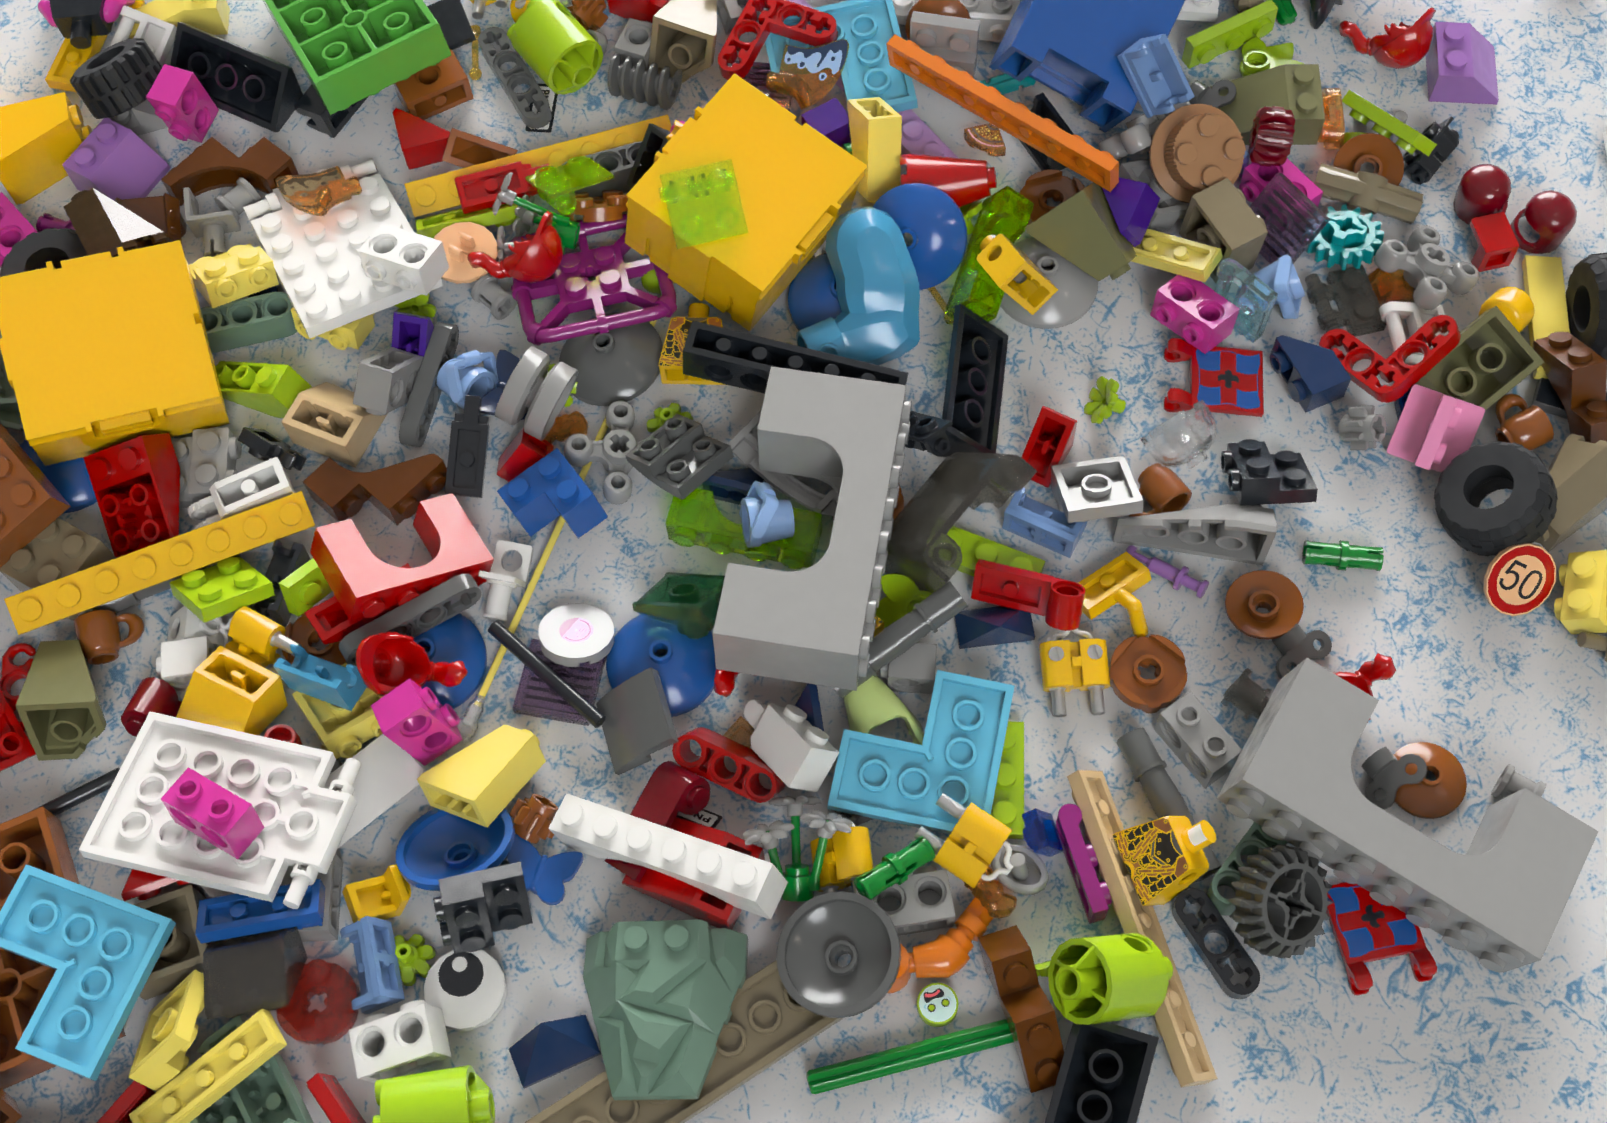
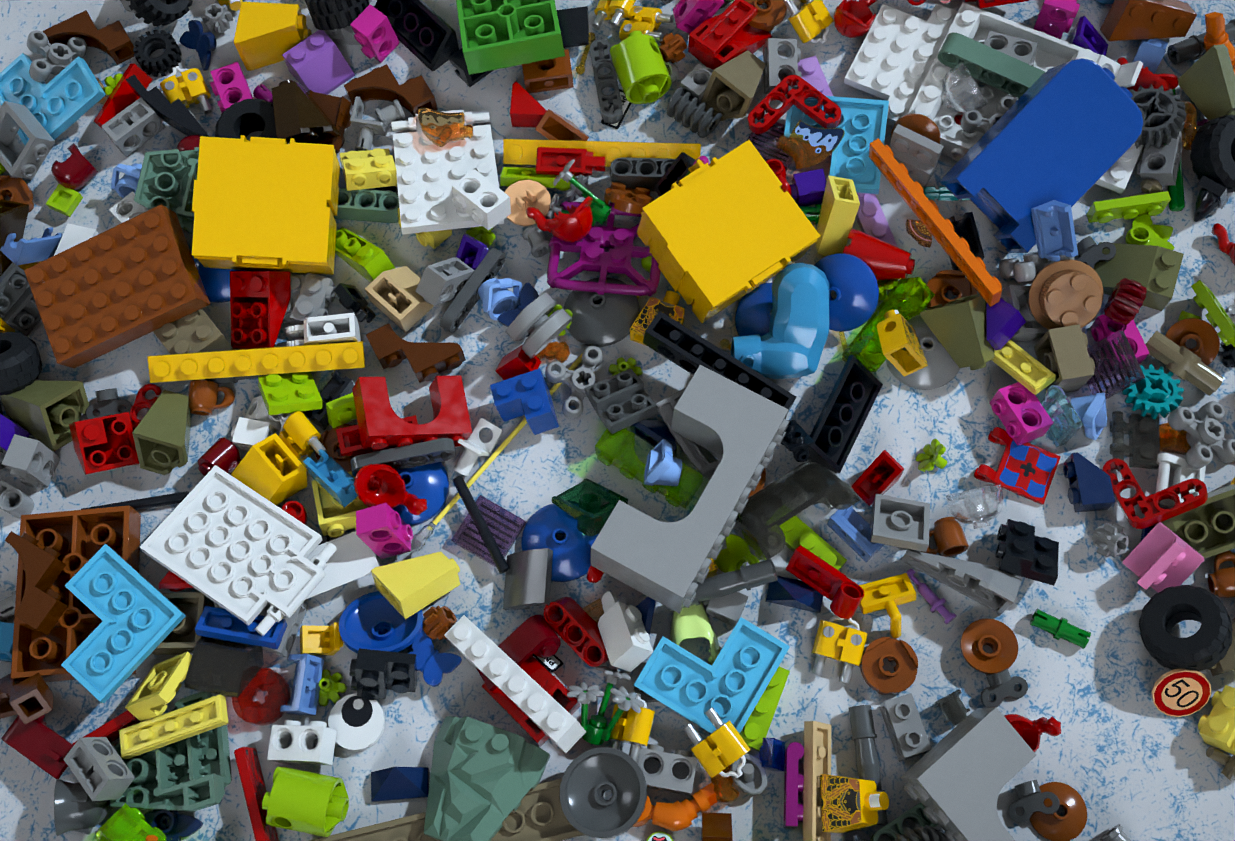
camera: 20 degrees right, 5 degrees up
(212, 813) = (229, 554): dark pink brick -> none
(468, 451) = (481, 348): black hinge -> none
(558, 184) = (610, 174): clear neon green hinge -> none
(576, 634) = (509, 503): tile -> none
(703, 203) = (693, 232): clear neon green hinge -> none
(894, 868) = (661, 747): green pin -> none
(1334, 126) = (1180, 296): clear orange plate -> none

